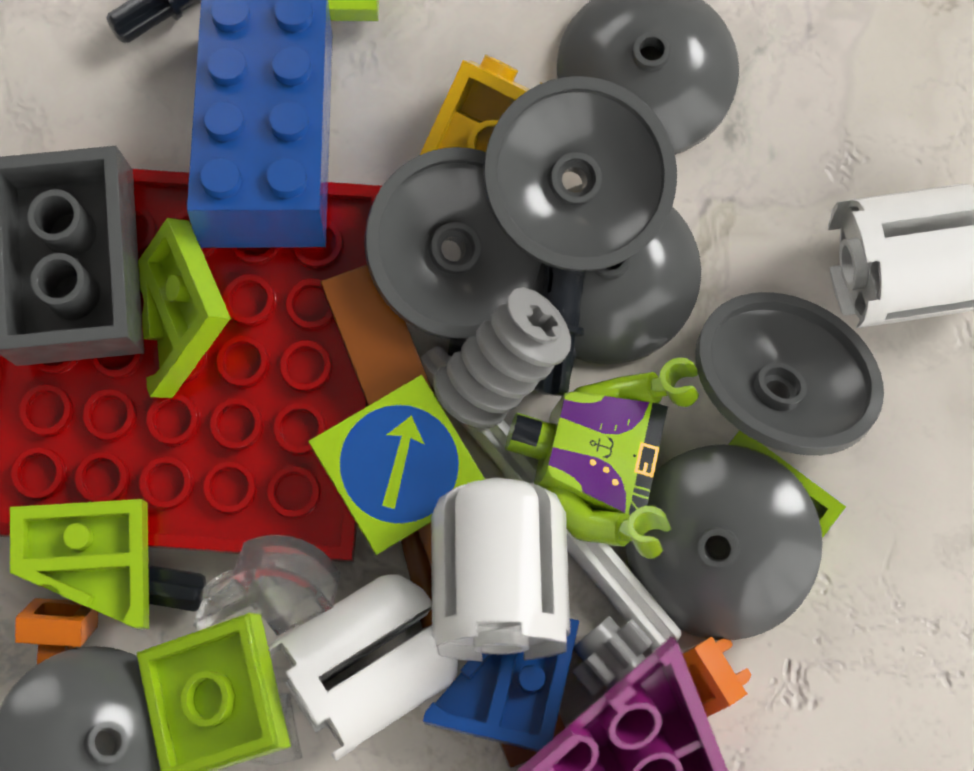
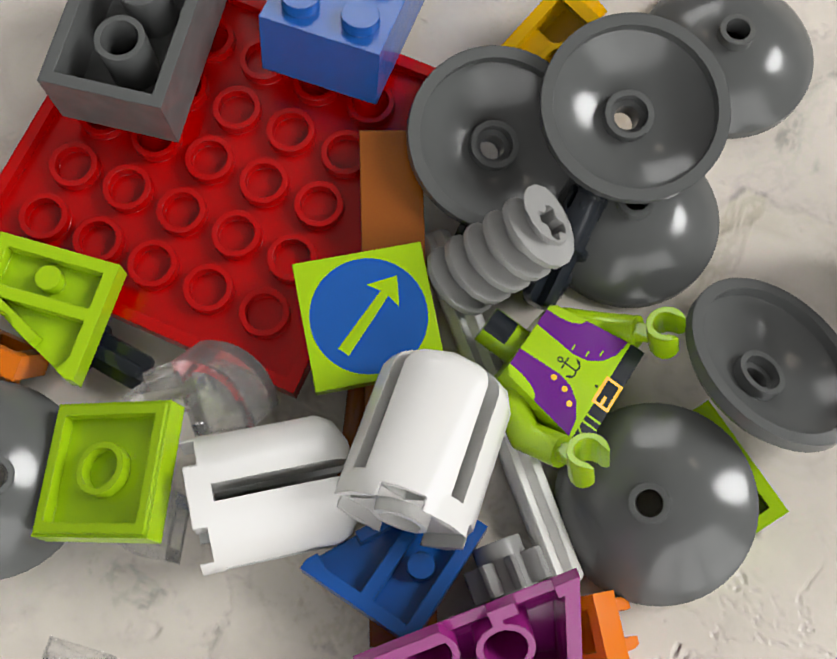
camera: 20 degrees right, 5 degrees down
(180, 305) = (224, 107): lime wing -> none

